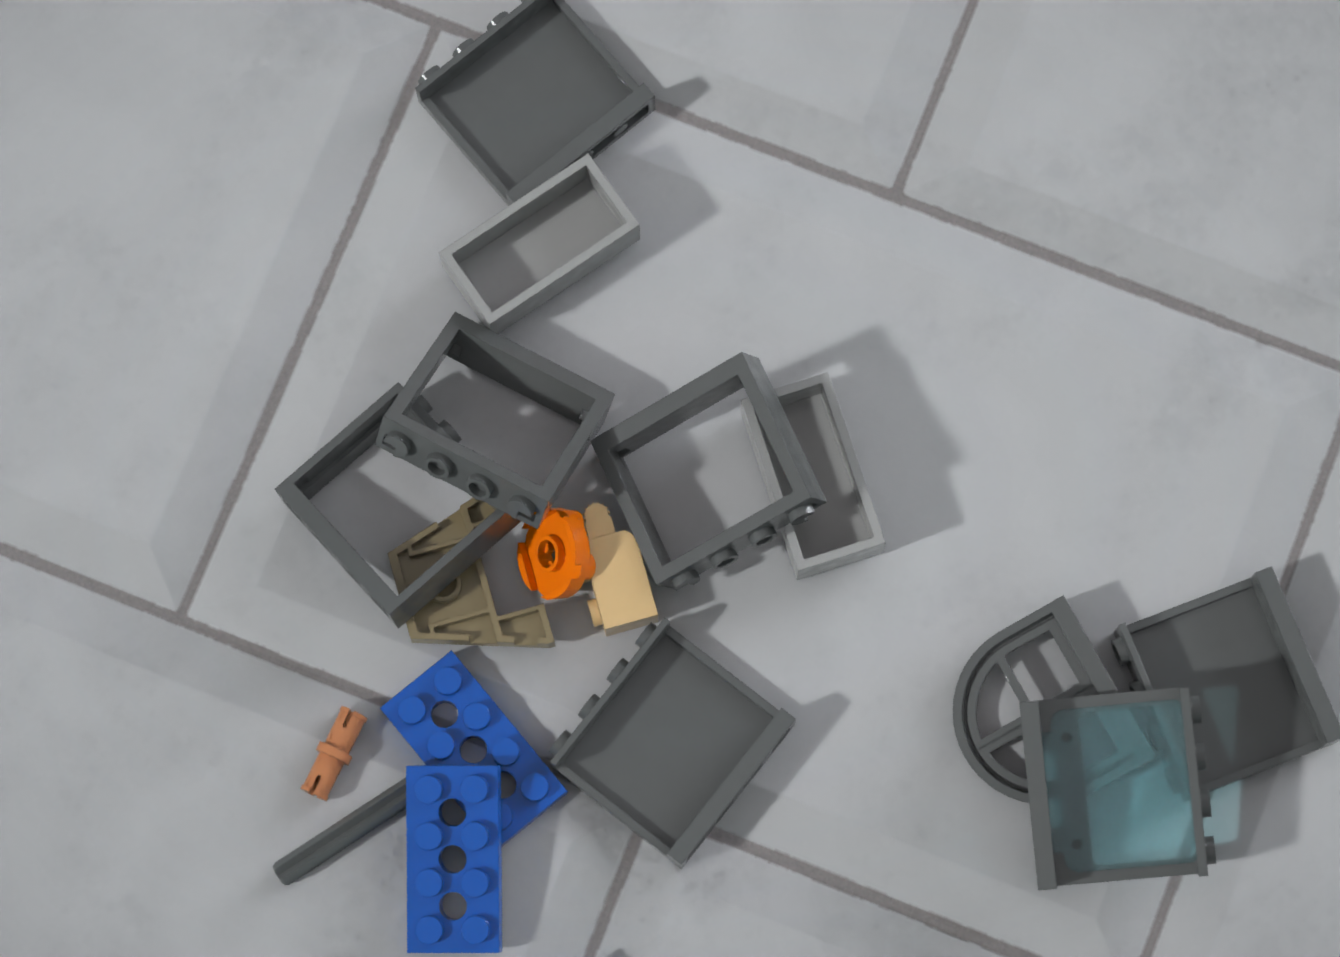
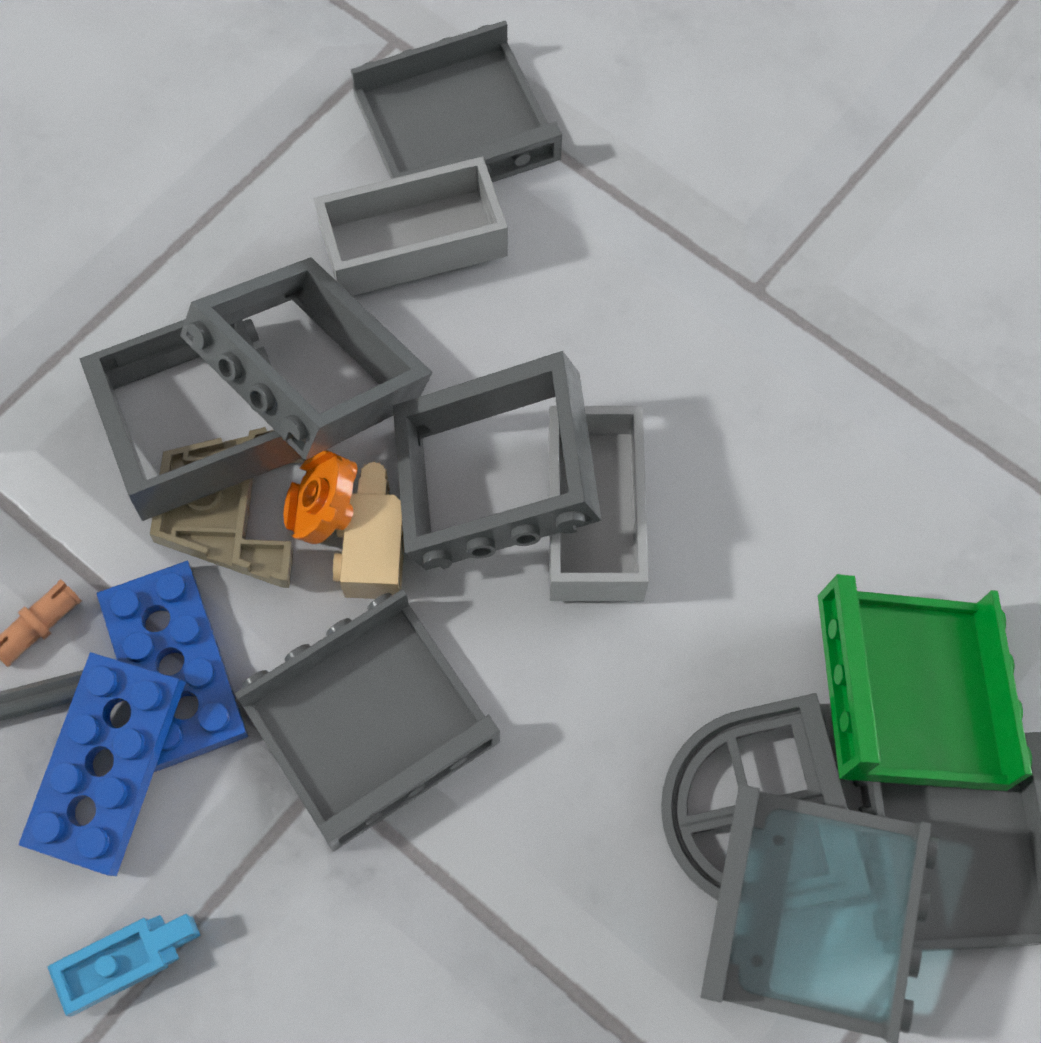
camera: 15 degrees right, 10 degrees down
(1154, 559) = (922, 689): none -> green panel

